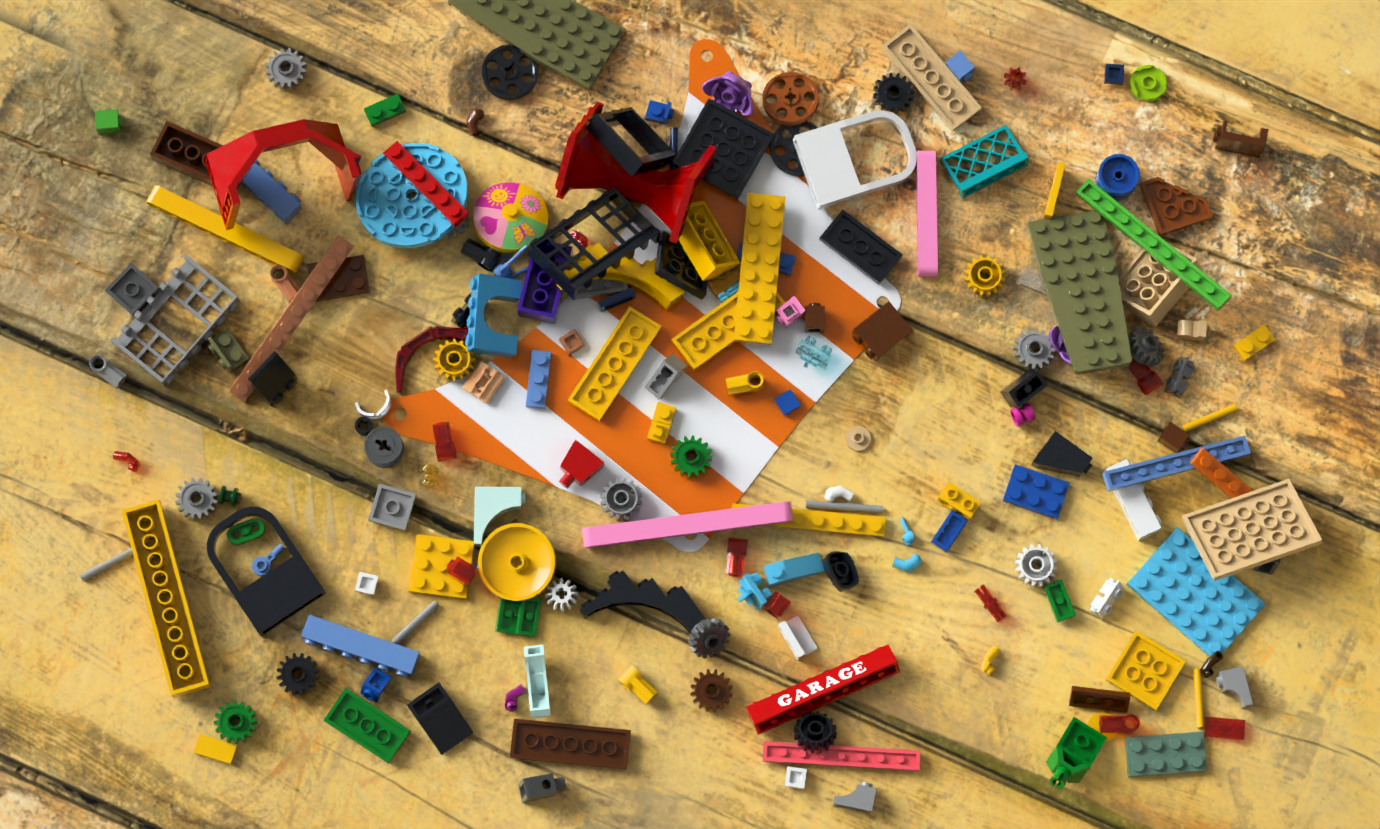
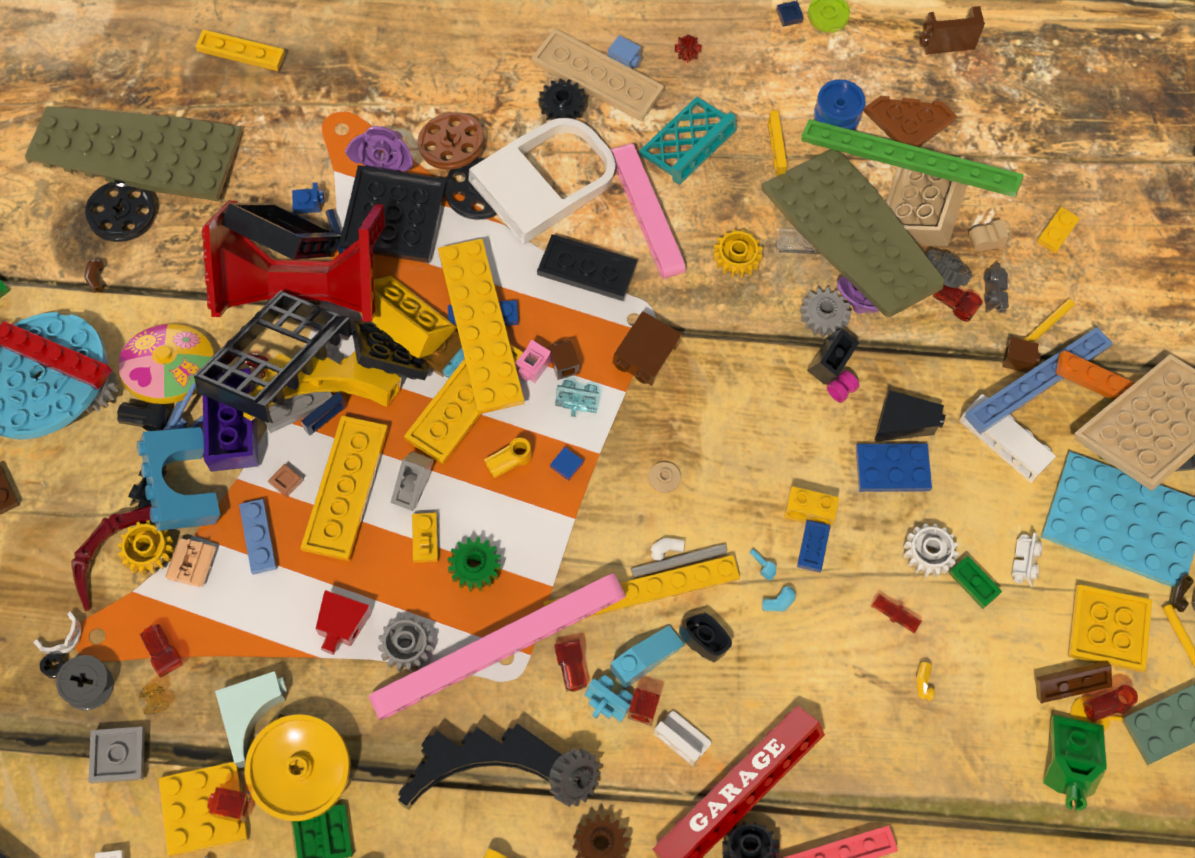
camera: 20 degrees left, 10 degrees down
(556, 599) = (374, 780): white gear -> none

